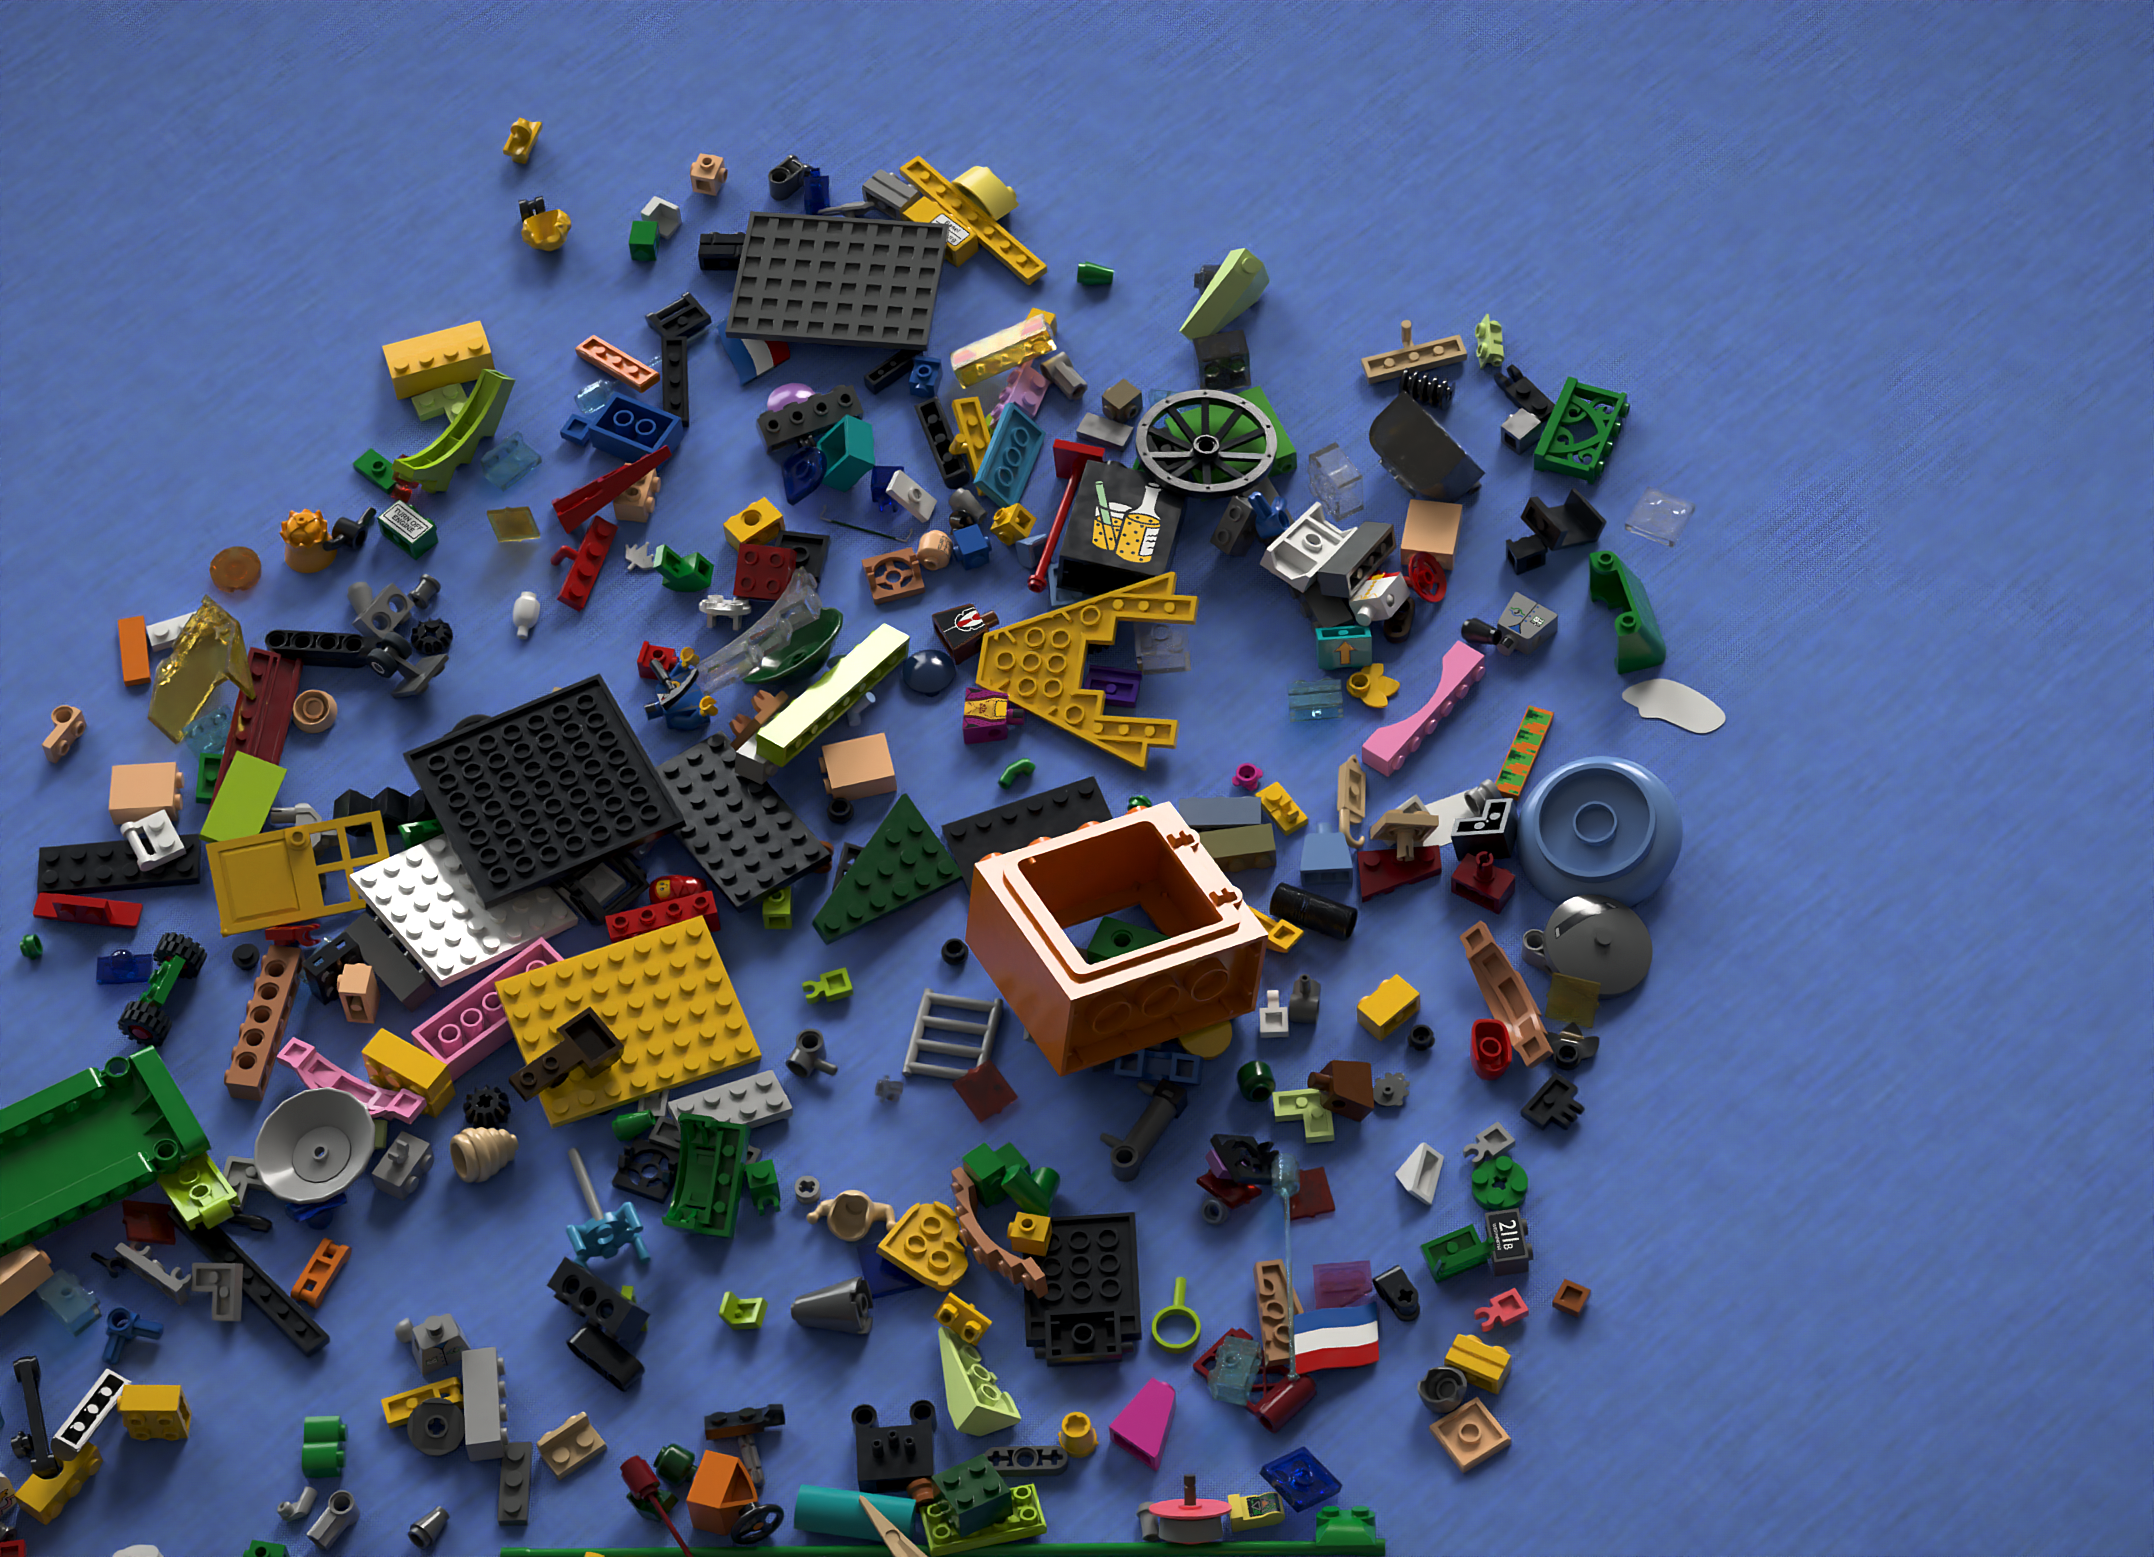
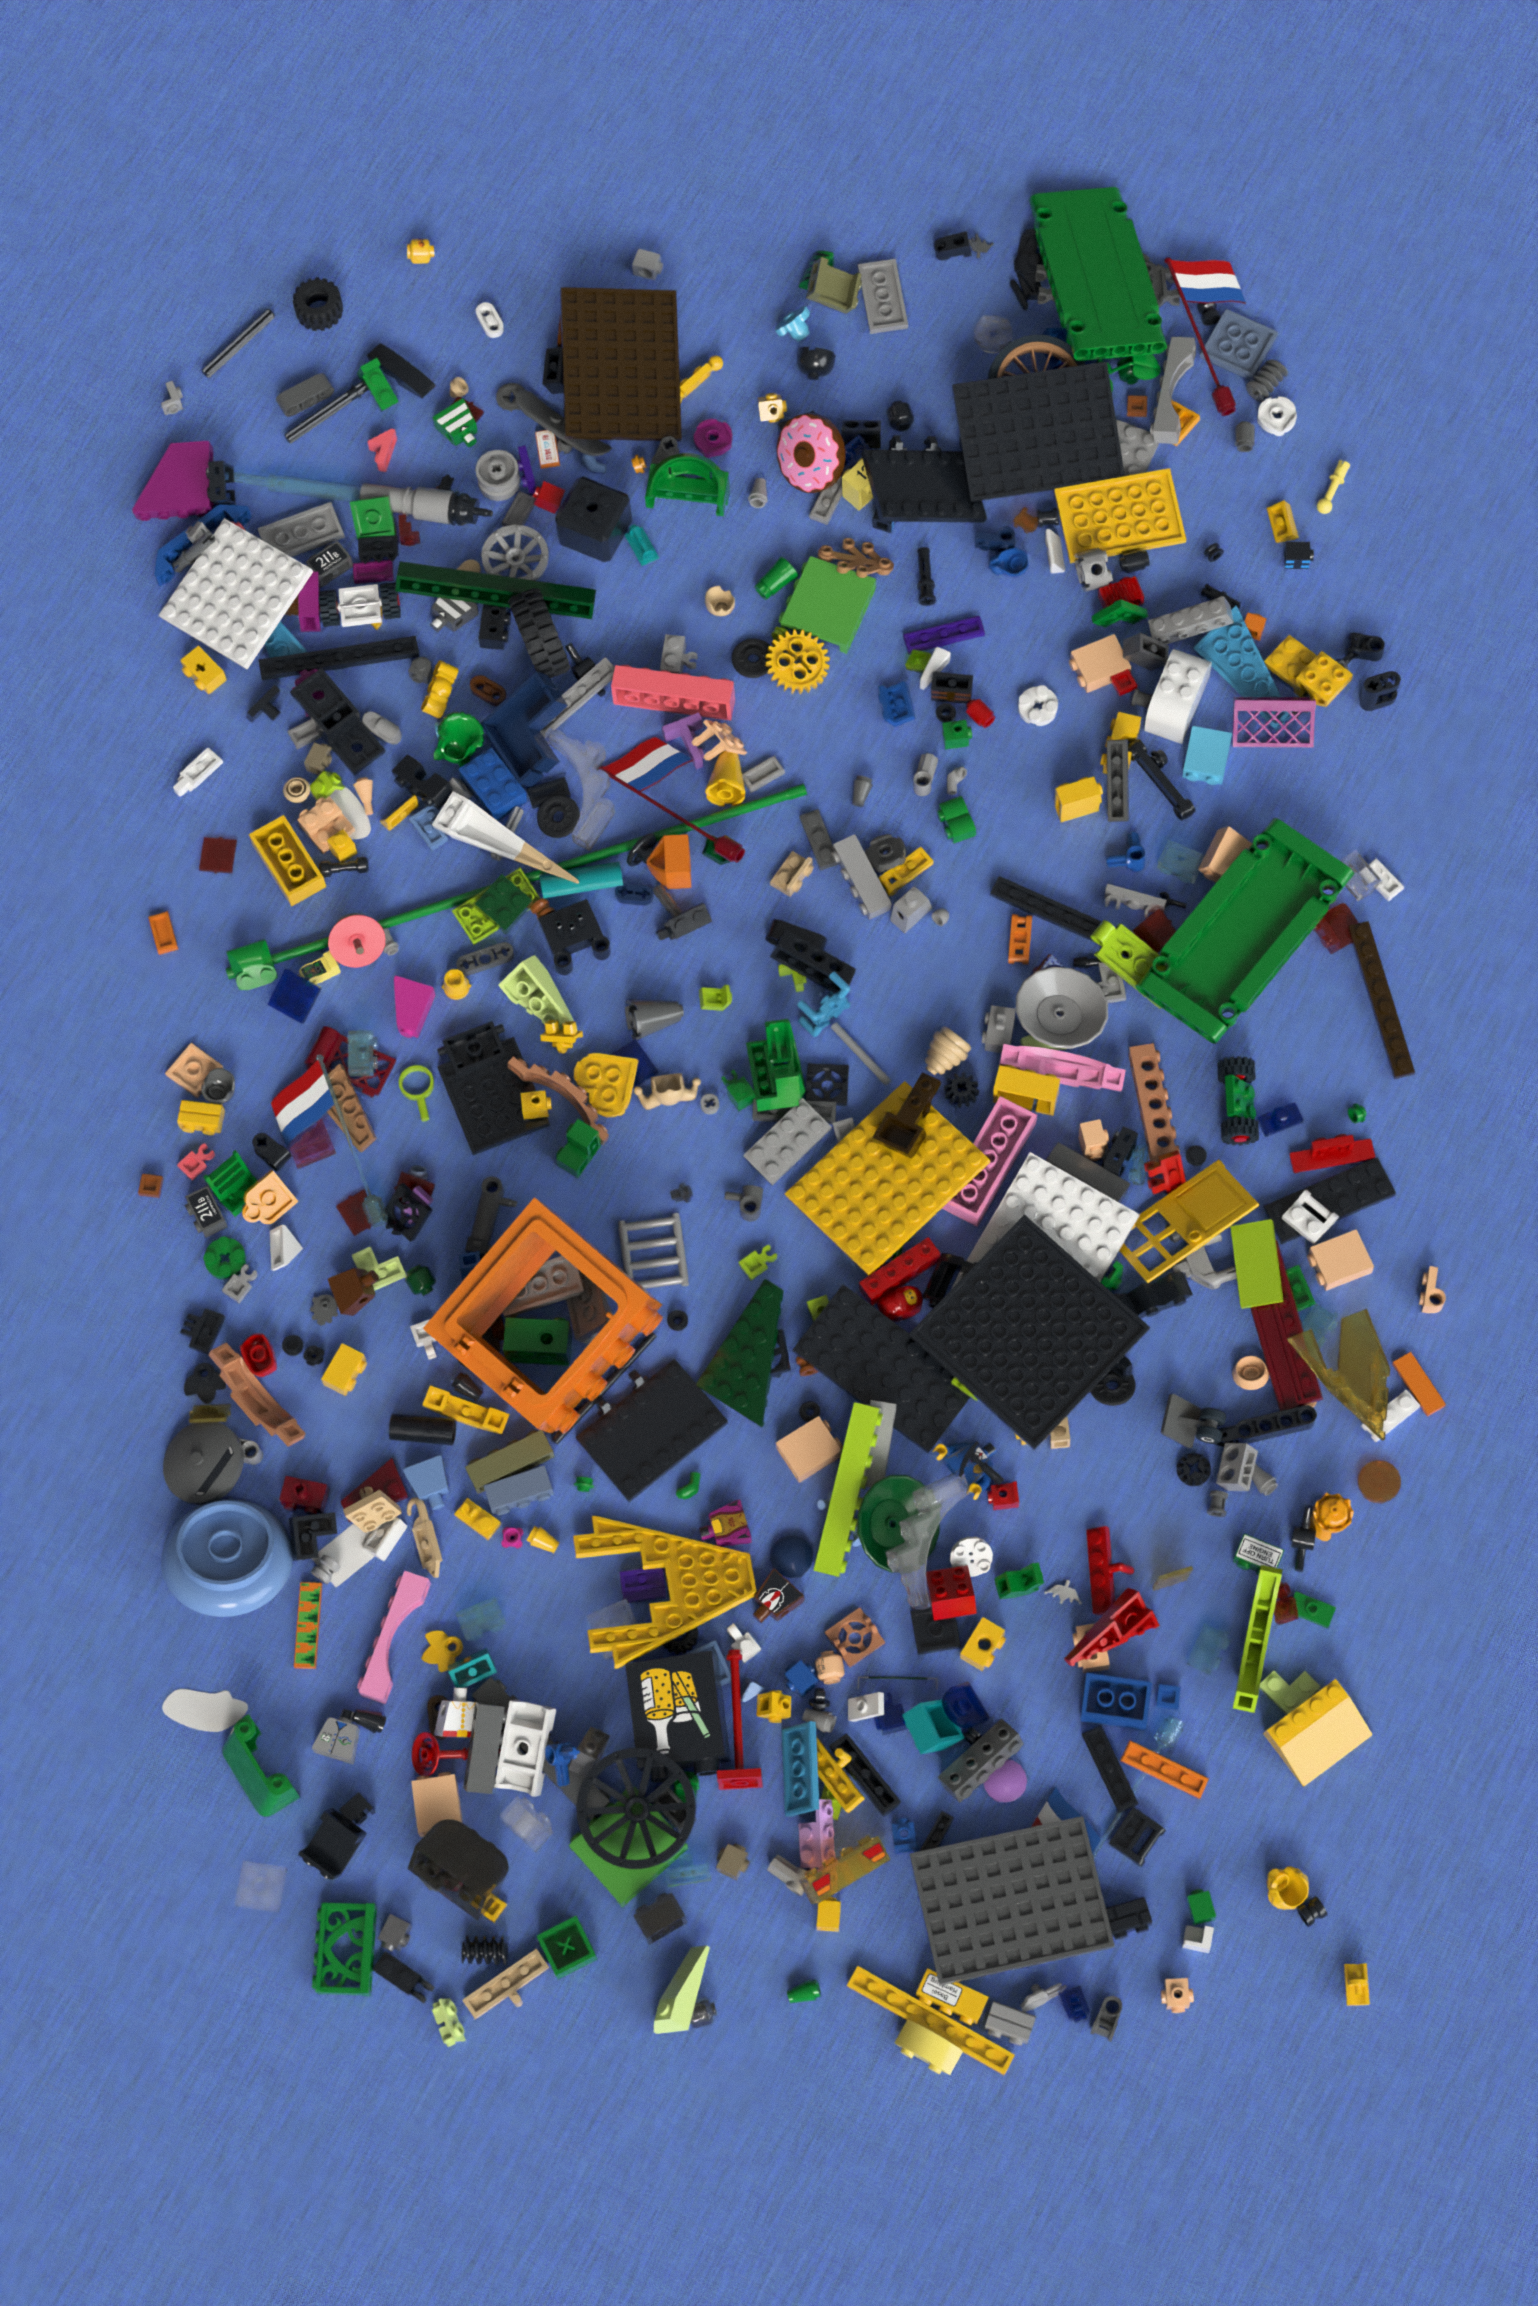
camera: 160 degrees right, 15 degrees up
(226, 1285) = (1078, 902): light grey plate -> none
(525, 613) = (1128, 1510): white plant -> none
(632, 1124) = (854, 1107): green cone -> none
(675, 1465) = (715, 879): dark green head -> none
(766, 706) = (893, 1453): nougat piece -> none
(793, 1481) = (634, 894): none -> dark blue beam
(984, 1091) = (613, 1215): clear red piece -> none
(1021, 600) = (744, 1643): none -> white plate
(1032, 1192) = (541, 1136): green brick -> none
(1105, 432) = (737, 1832): flat silver tile -> none
(1212, 762) = (542, 1539): none -> yellow cone
(1305, 1001) = (405, 1355): dark grey piece -> none
(1334, 366) = (567, 1947): none -> green brick
(1420, 1227) = (267, 1199): none -> light orange plate
(1444, 1057) = (292, 1345): none -> black plate

